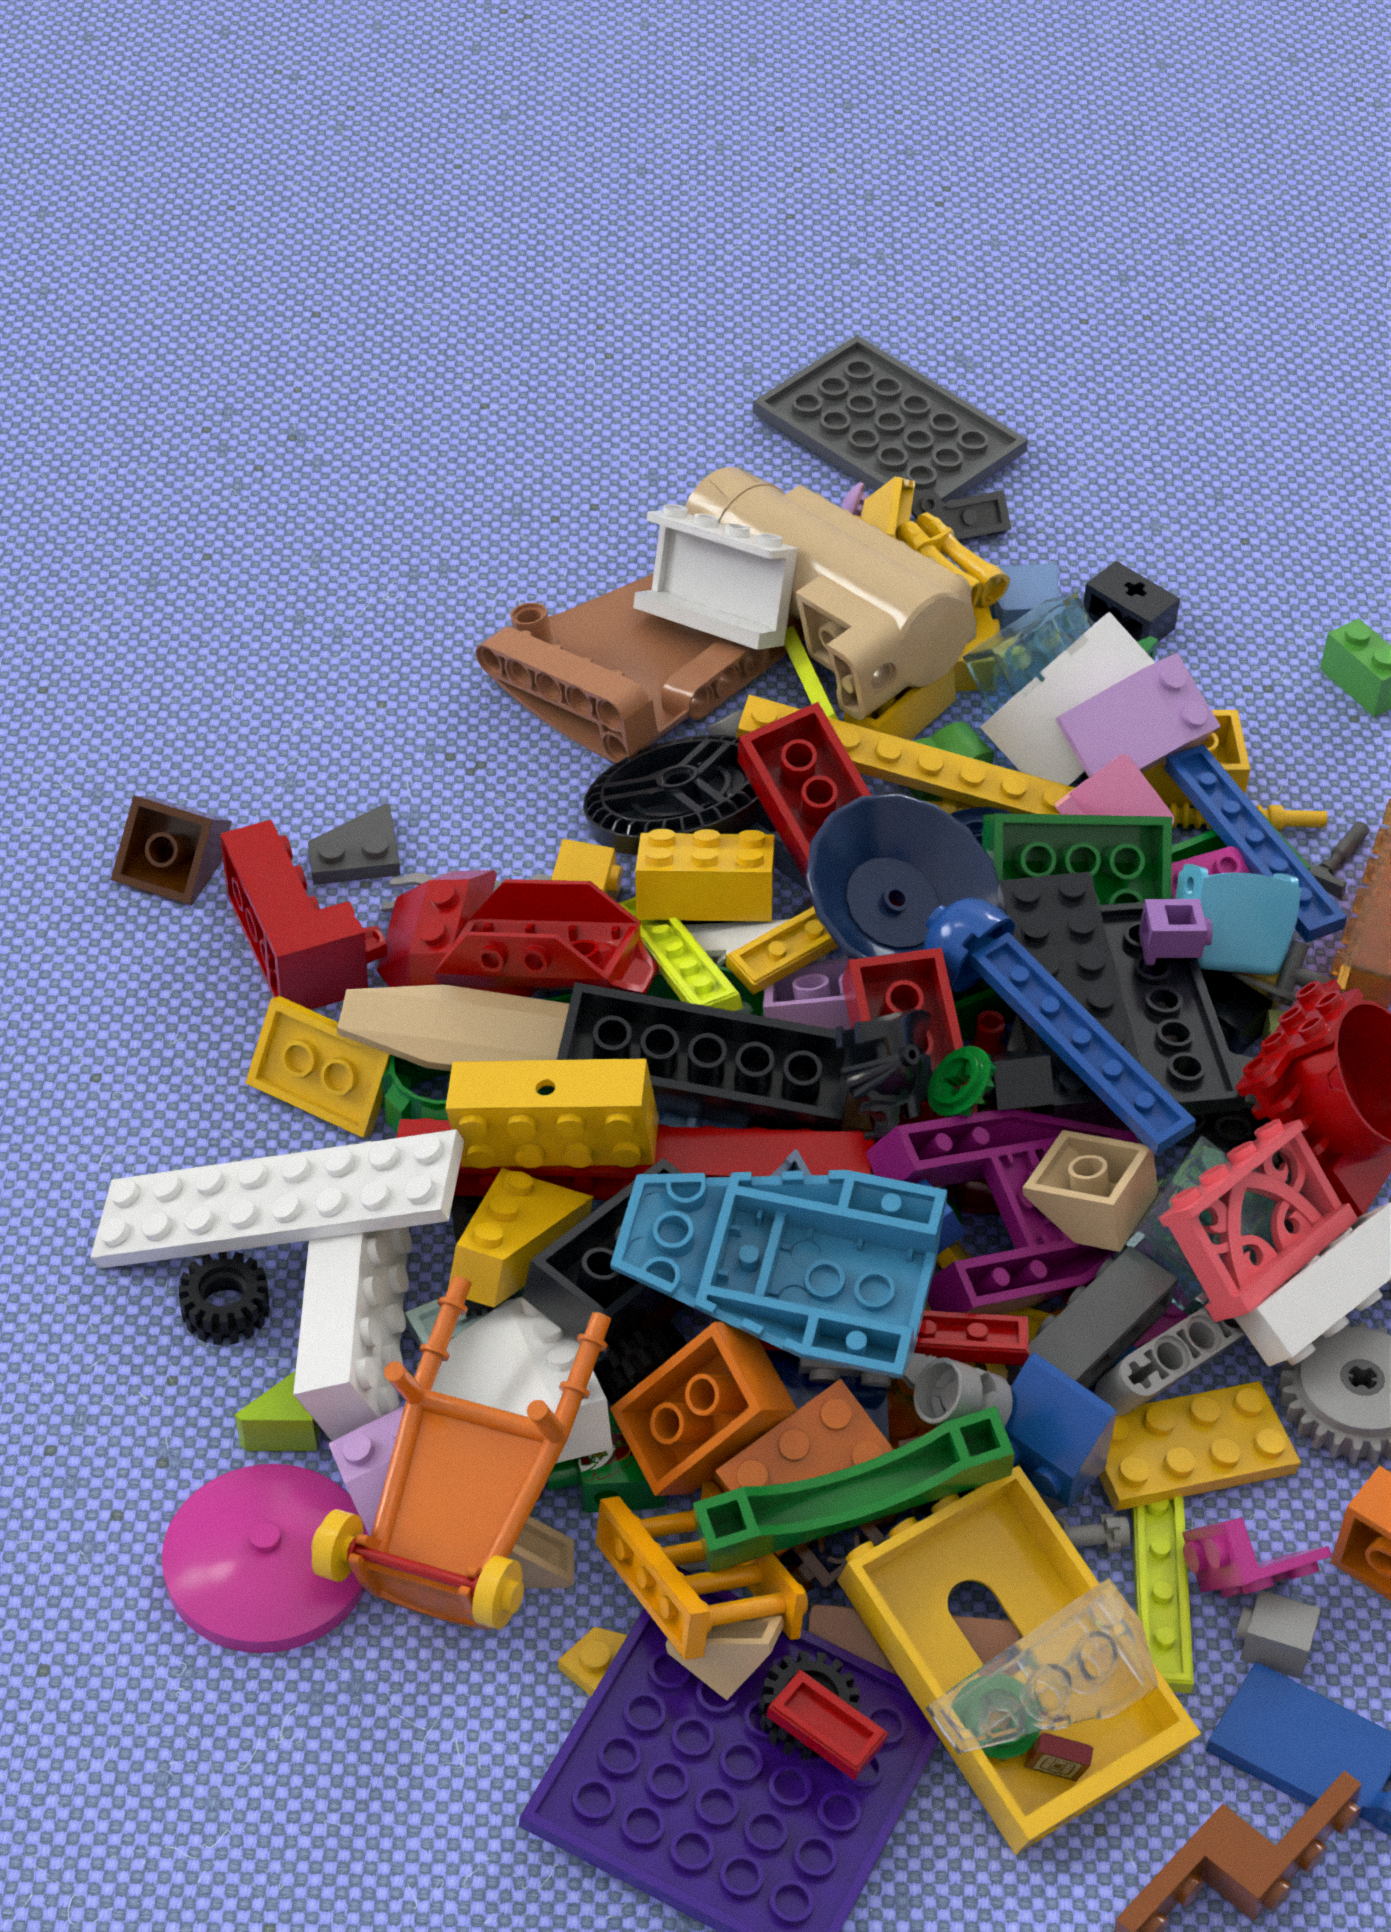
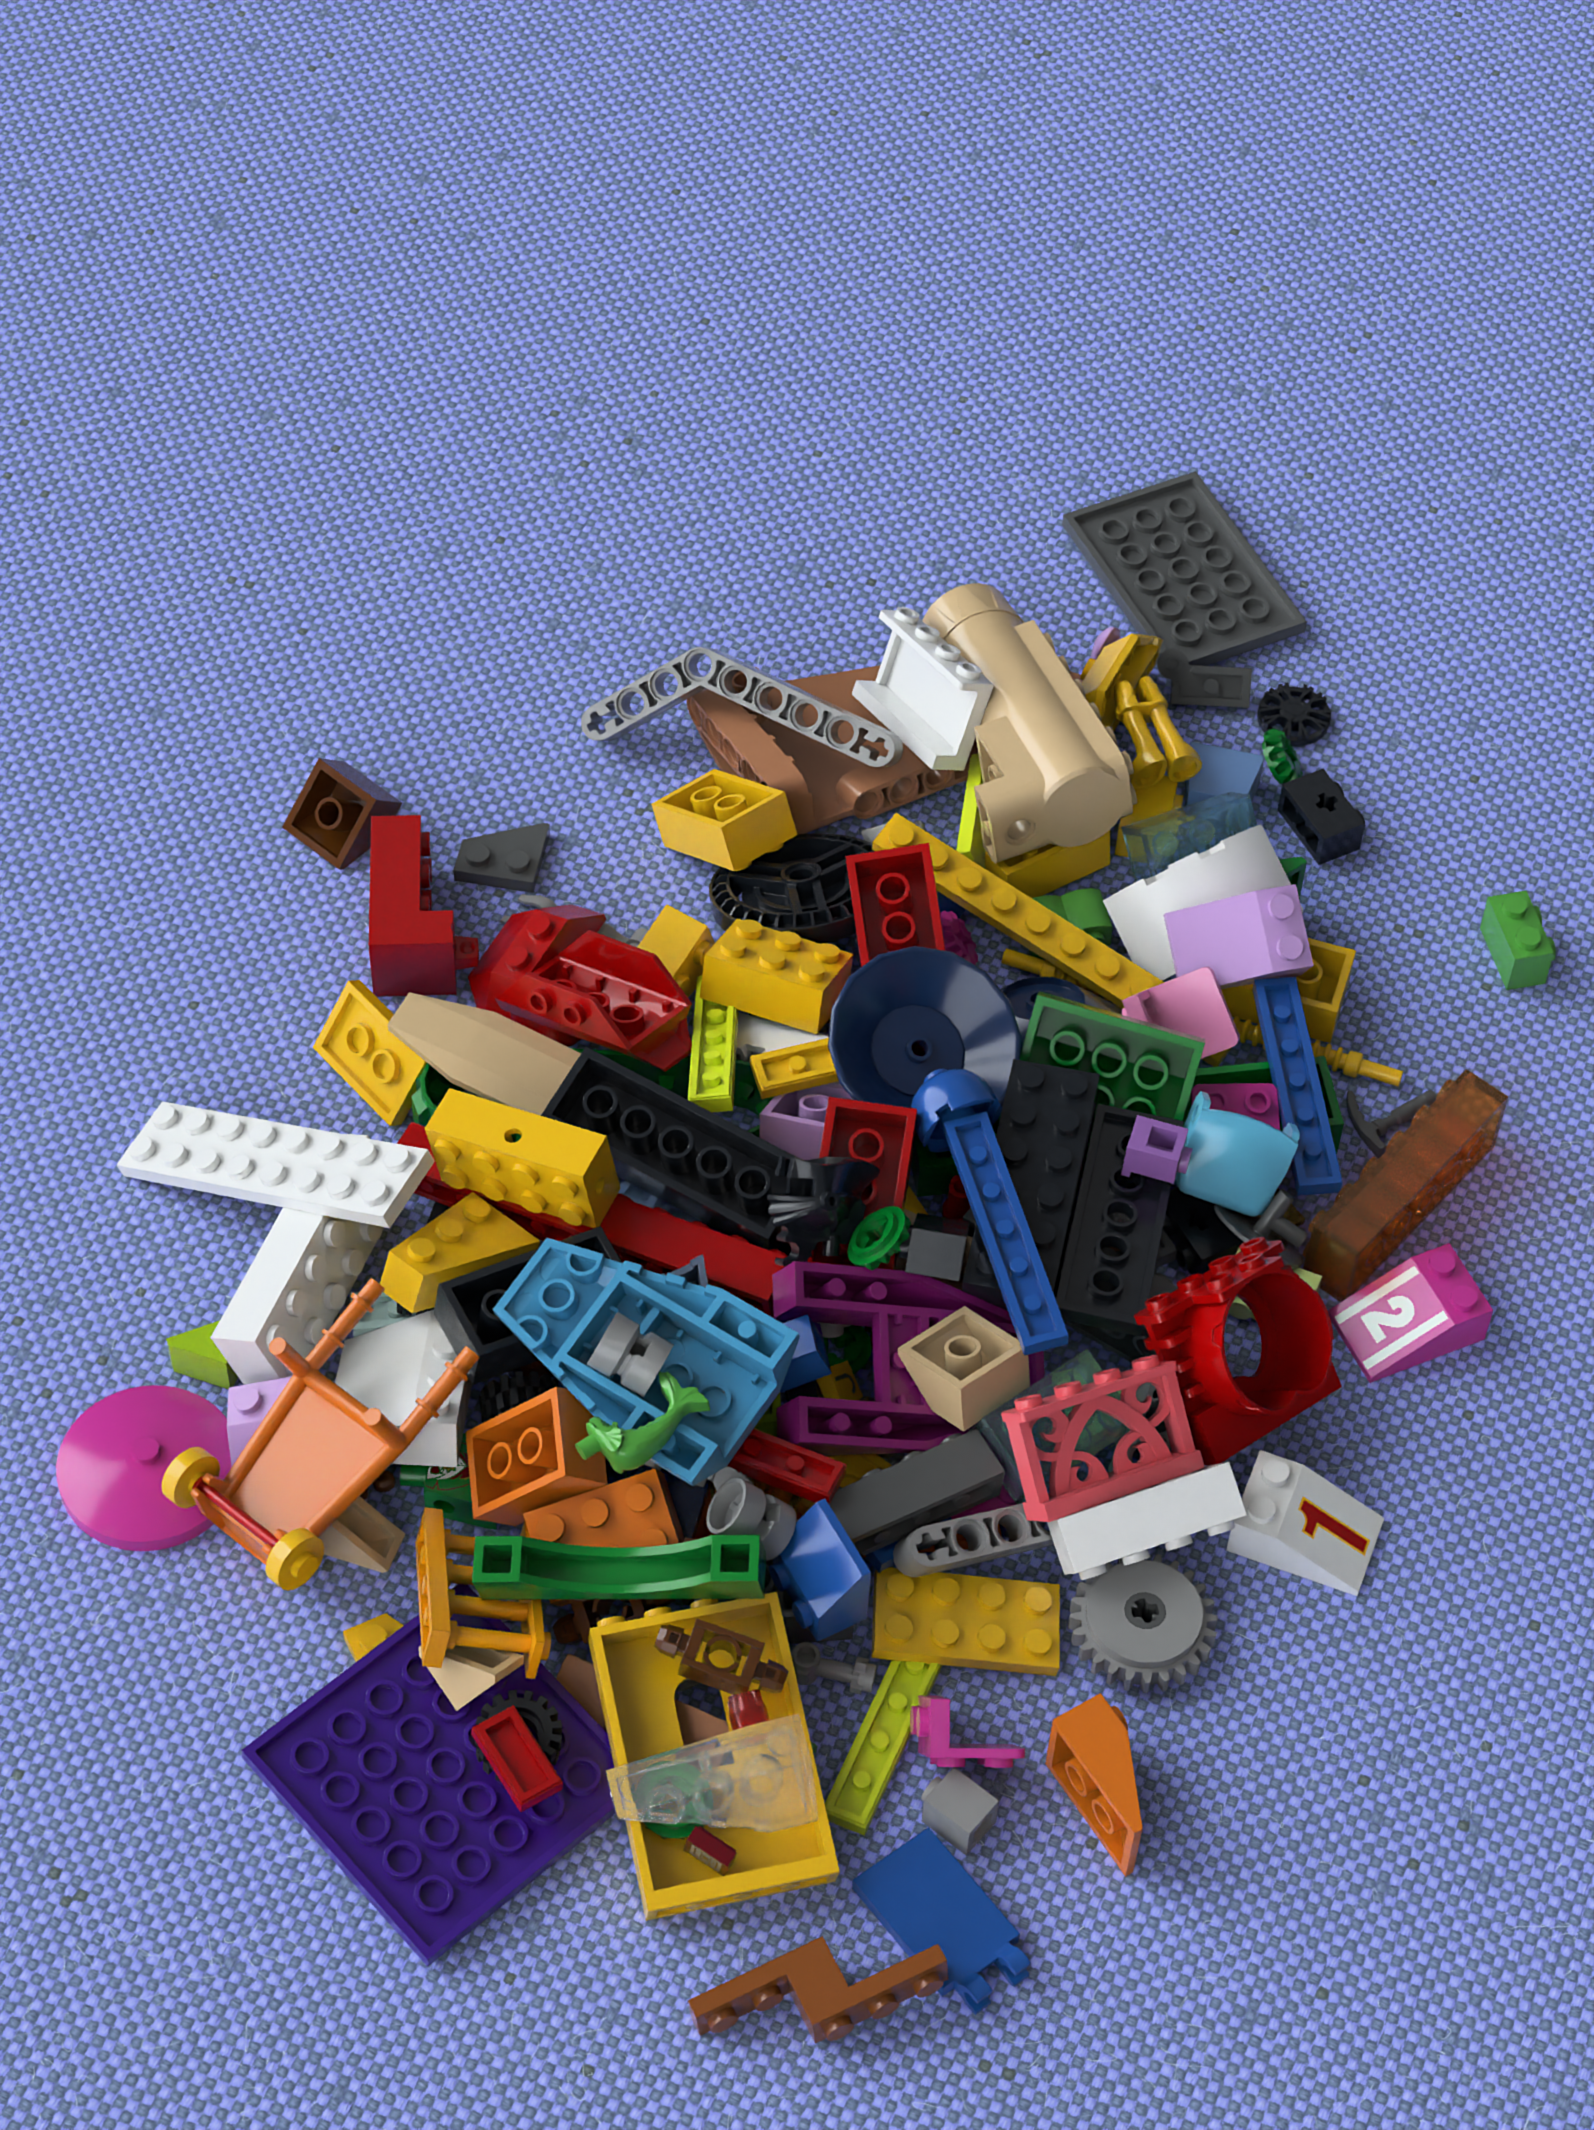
camera: 20 degrees right, 5 degrees up
(229, 1319) = (215, 1253): black tyre -> none
(551, 627) = (753, 697): none -> light grey beam
(574, 749) = (724, 819): none -> yellow brick
(783, 1264) = (630, 1354): none -> light grey wheel
(828, 1357) = (634, 1447): none -> bright green animal
(979, 1565) = (673, 1642): none -> reddish brown piece
(1045, 1596) = (747, 1709): none -> clear red hose
(1054, 525) = (1294, 713): none -> black wheel
(1069, 562) = (1281, 756): none -> green gear

